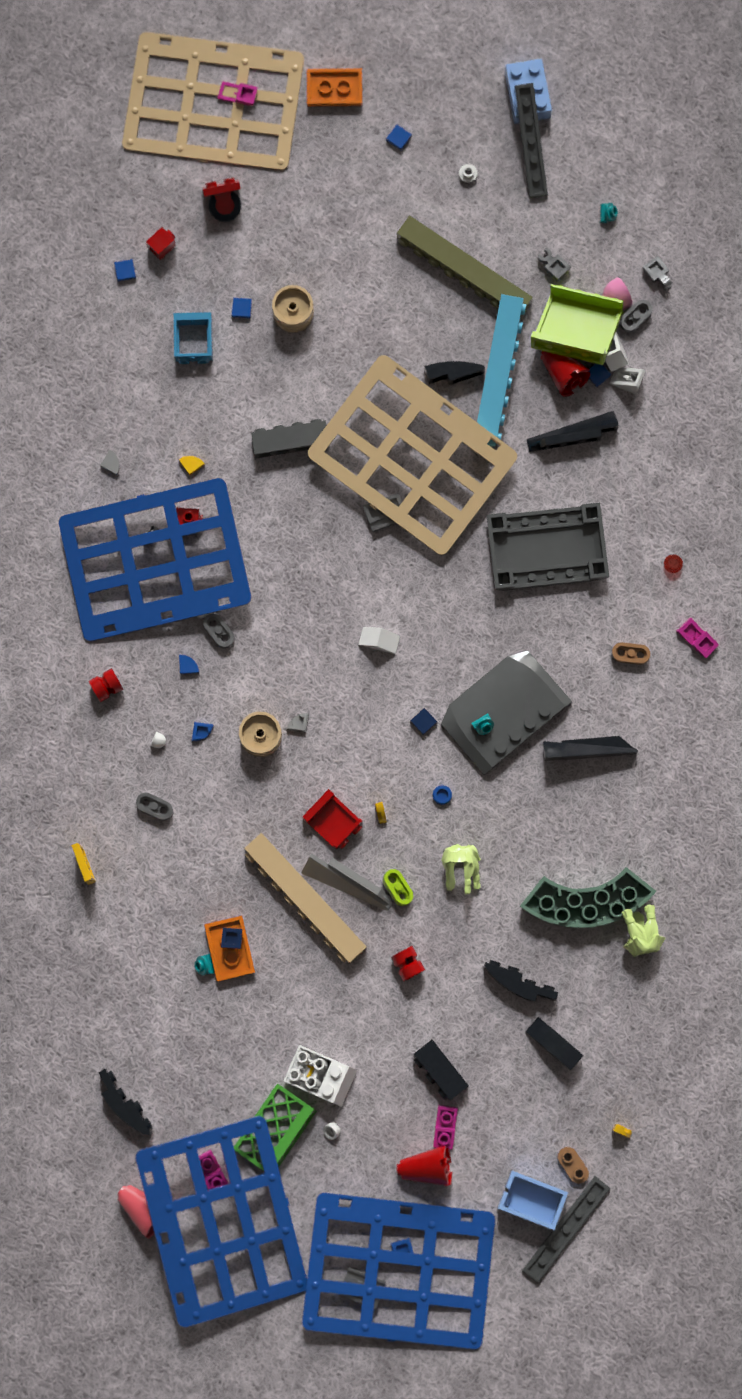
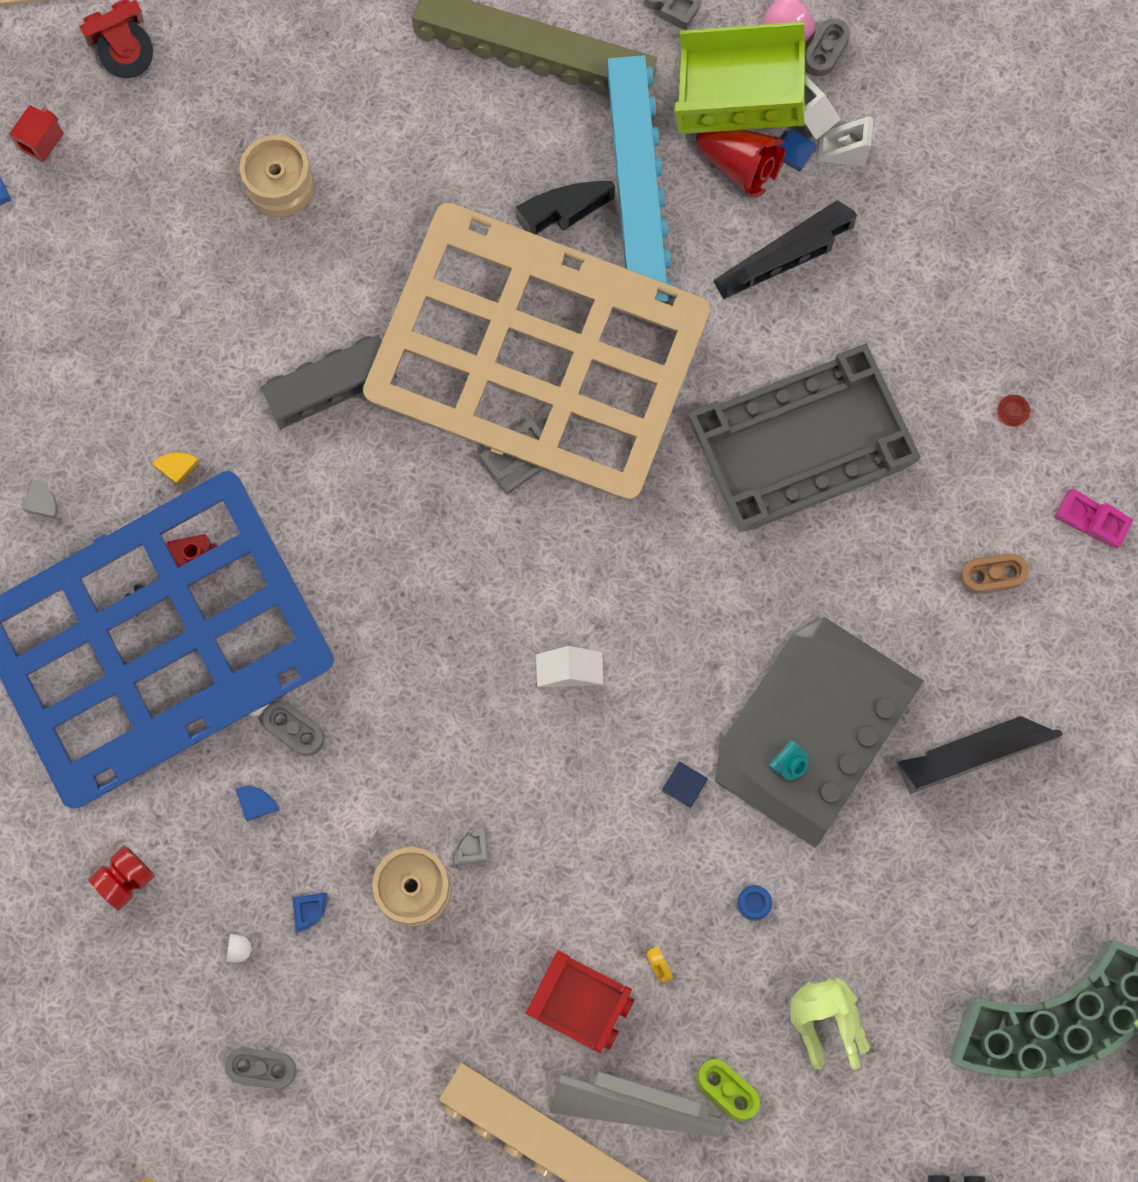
camera: 15 degrees left, 5 degrees down
(199, 318) = (117, 237): dark azure window -> none
(241, 308) = (194, 199): blue tile -> none

